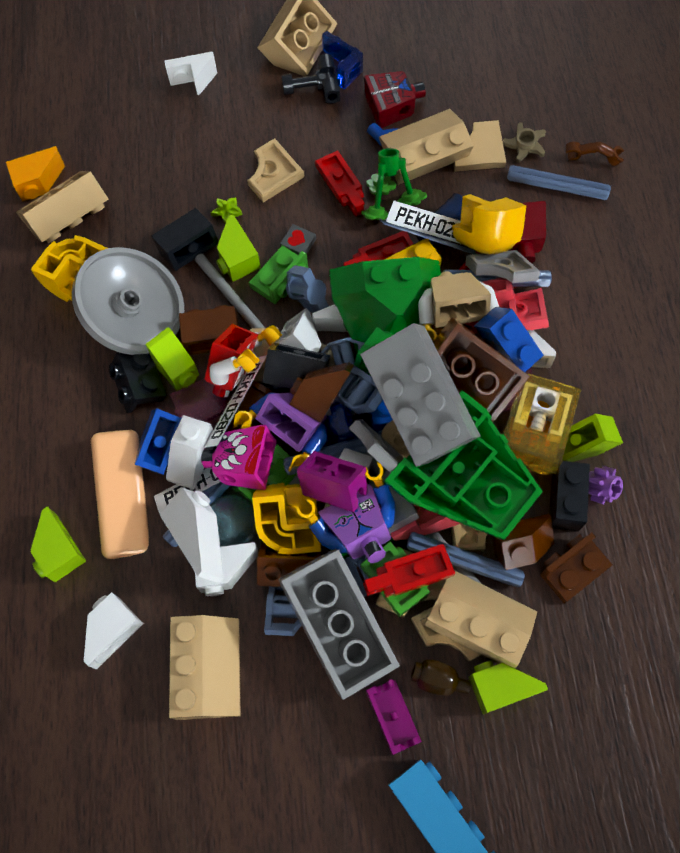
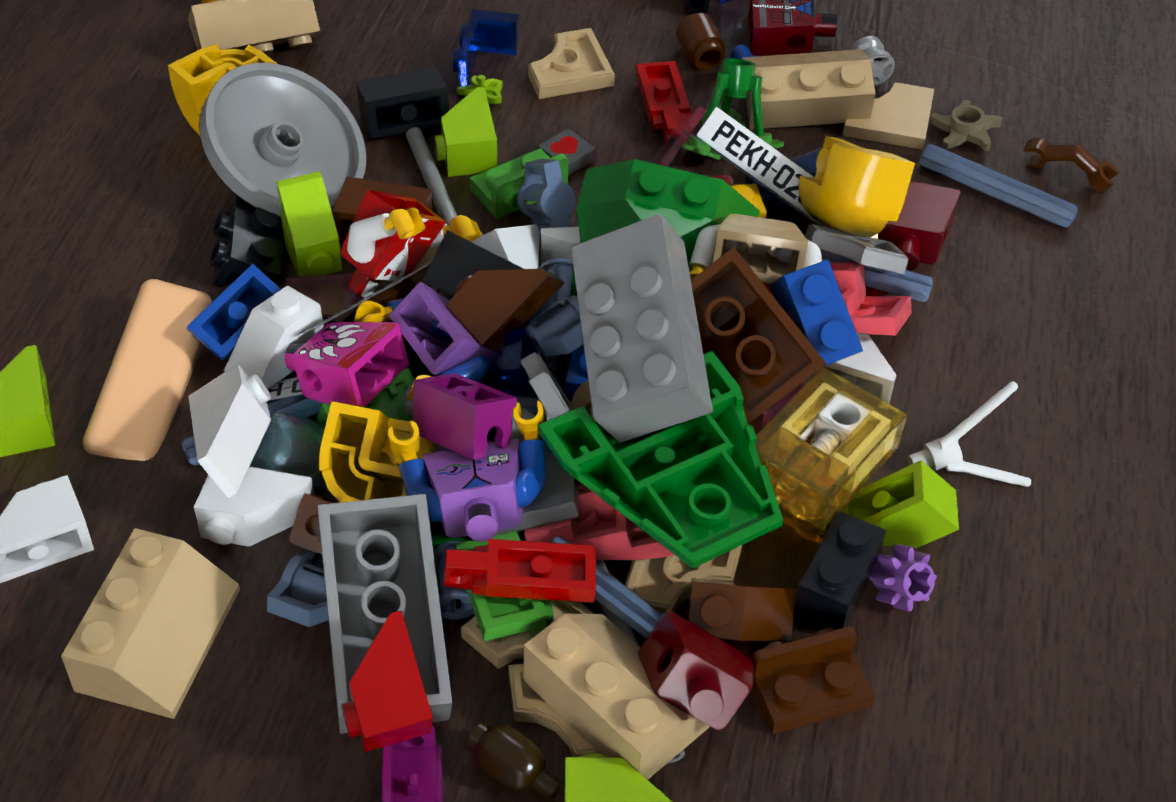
camera: 15 degrees right, 20 degrees down
(212, 164) = (485, 33): none -> clear blue bracket
(346, 128) = (701, 41): none -> reddish brown brick
(366, 221) = (678, 137): none -> clear pink piece
(368, 681) = (387, 691): none -> red slope
(454, 104) = (881, 60): none -> light grey wheel
(523, 596) = (704, 672): none -> dark red torso
(594, 386) = (947, 452): none -> white plant

